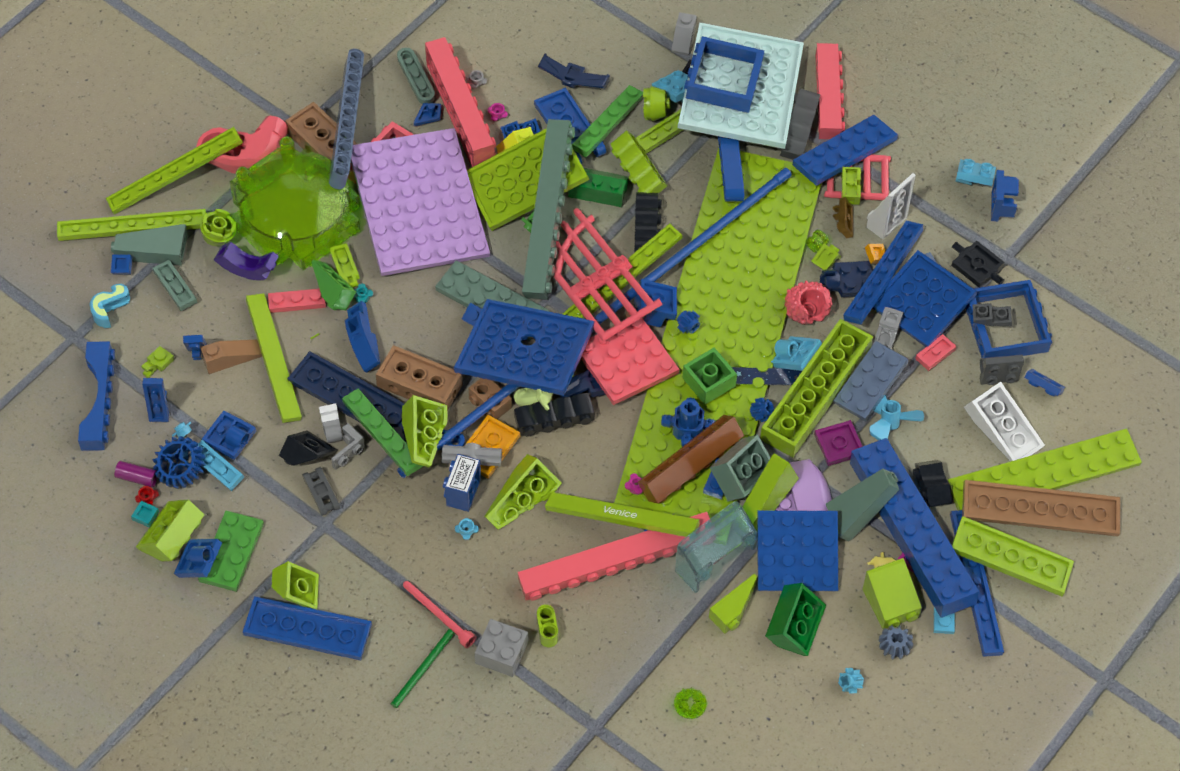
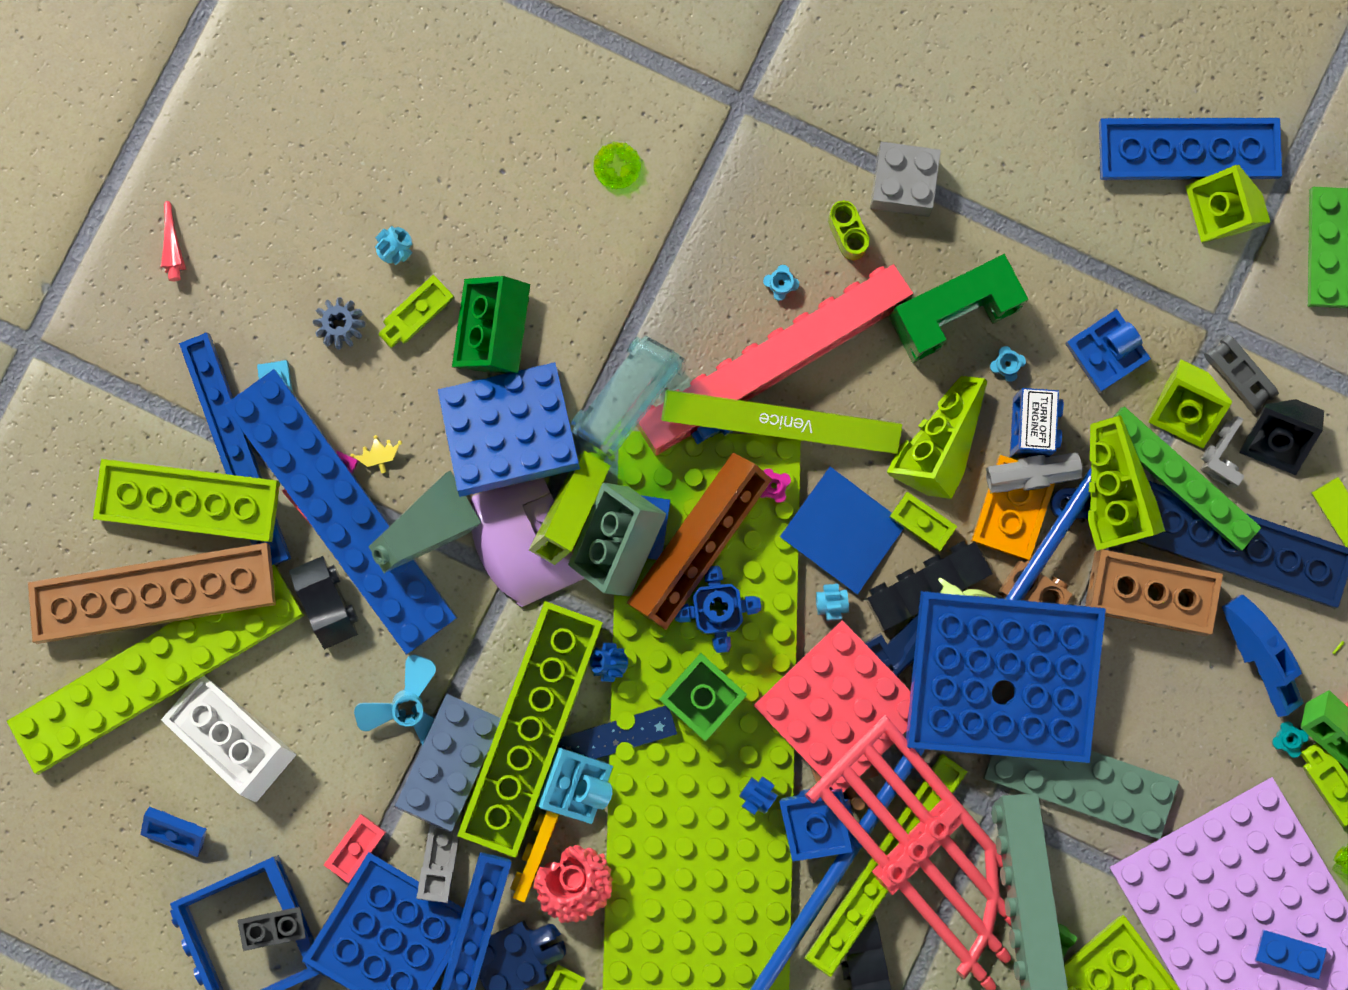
camera: 165 degrees right, 25 degrees up
(330, 423) = (1262, 487): leg -> none
(359, 479) = (1190, 404): none -> lime slope
(401, 521) = (1108, 350): none -> blue plate
(404, 180) = (1290, 954): none -> blue plate
(422, 668) = (1007, 130): green axle -> none
(466, 637) = (961, 188): coral piece -> none
(471, 314) = (1104, 740): blue plate -> none
(490, 563) = (988, 285): none -> green piece
(547, 451) = (923, 521): none -> lime plate
(598, 457) = (842, 530): none -> blue sticker
(599, 601) = (780, 291): none -> medium azure plate
(616, 417) = (832, 602): none -> medium azure gear
(730, 609) = (588, 320): lime slope -> none
(830, 321) = (533, 855): none -> yellow plate
(837, 442) = (479, 643): magenta plate -> none
(843, 639) = (415, 312): none -> lime hinge
(892, 594) = (355, 392): lime slope -> none
(1000, 369) = (258, 827): dark grey plate -> none
(1001, 709) = (171, 255): none -> coral piece

